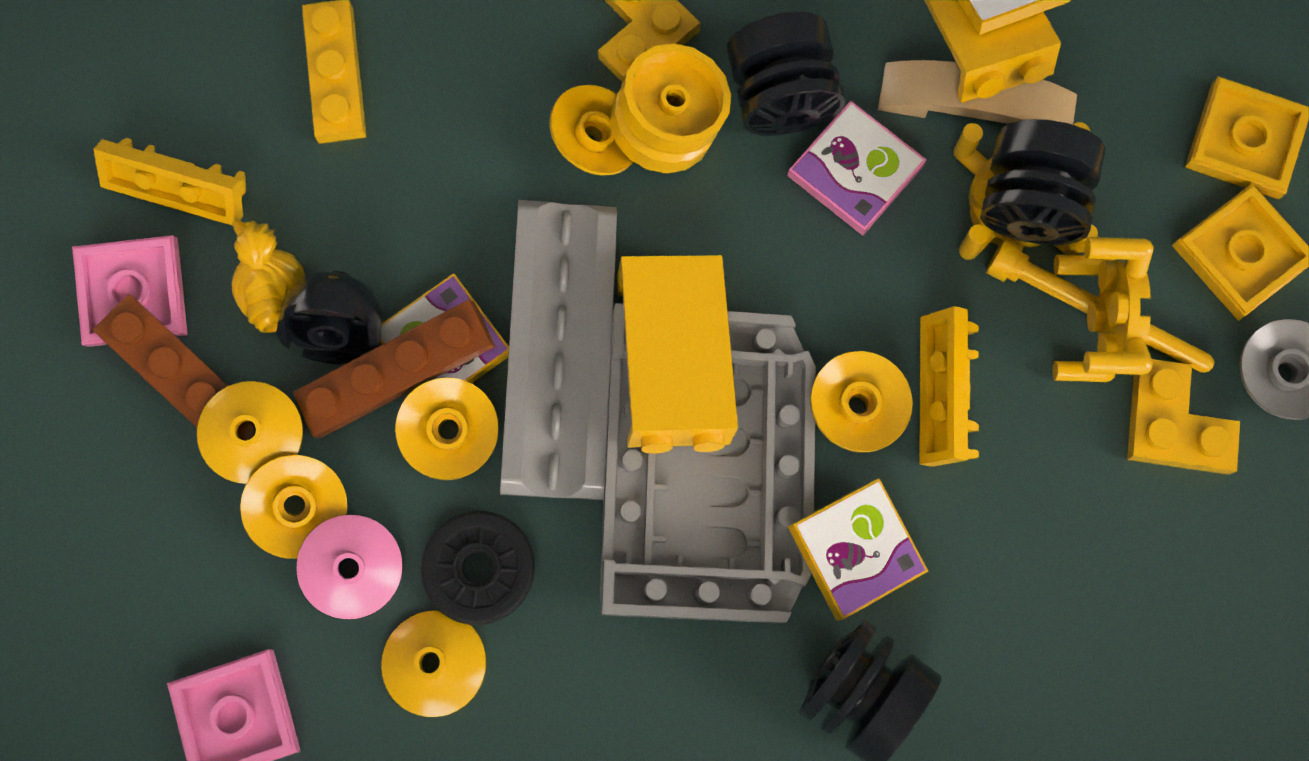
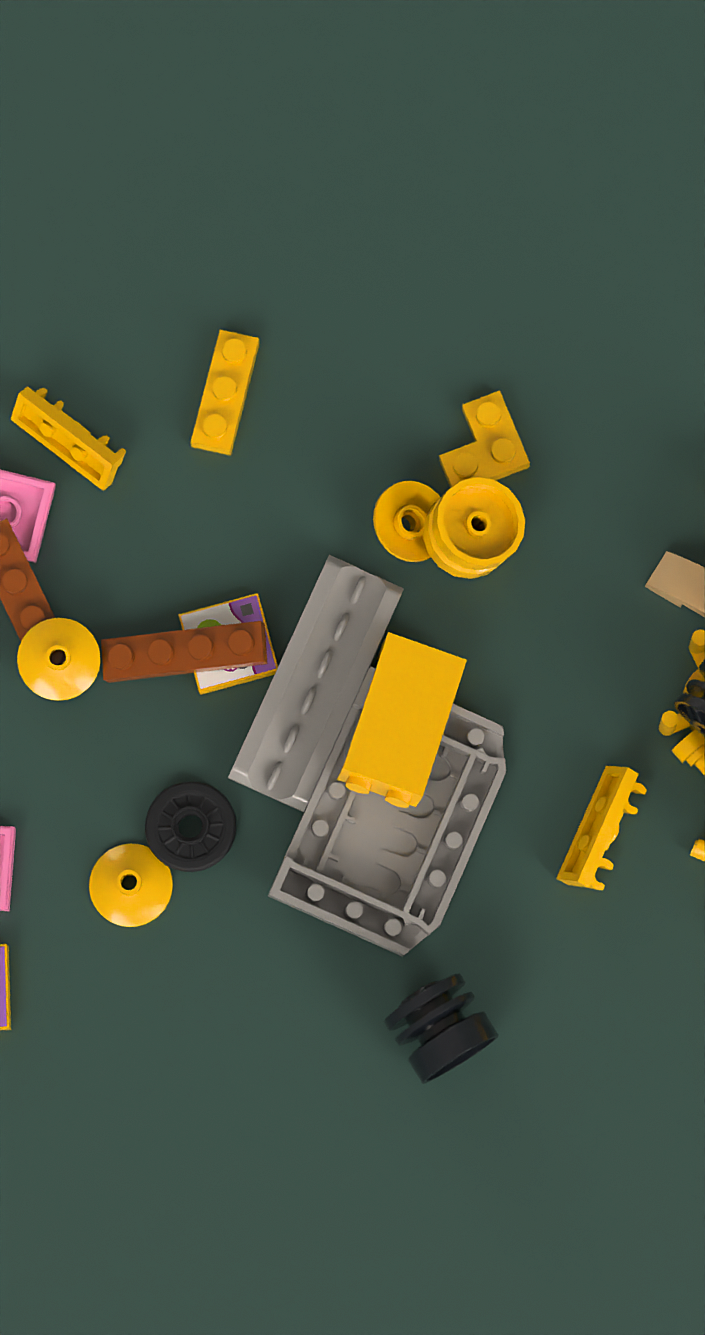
camera: 25 degrees right, 0 degrees up
(262, 274) = (113, 545): yellow hair -> none
(268, 488) = (73, 749): yellow dish -> none
(330, 318) = (151, 594): black cylinder -> none
(357, 539) = (101, 766): bright pink dish -> none
(420, 423) = (191, 697): yellow dish -> none
(785, 73) = (575, 534): black wheel -> none
(856, 168) = (606, 628): tile -> none
(857, 549) = (480, 922): tile -> none
(878, 385) = (541, 795): yellow dish -> none

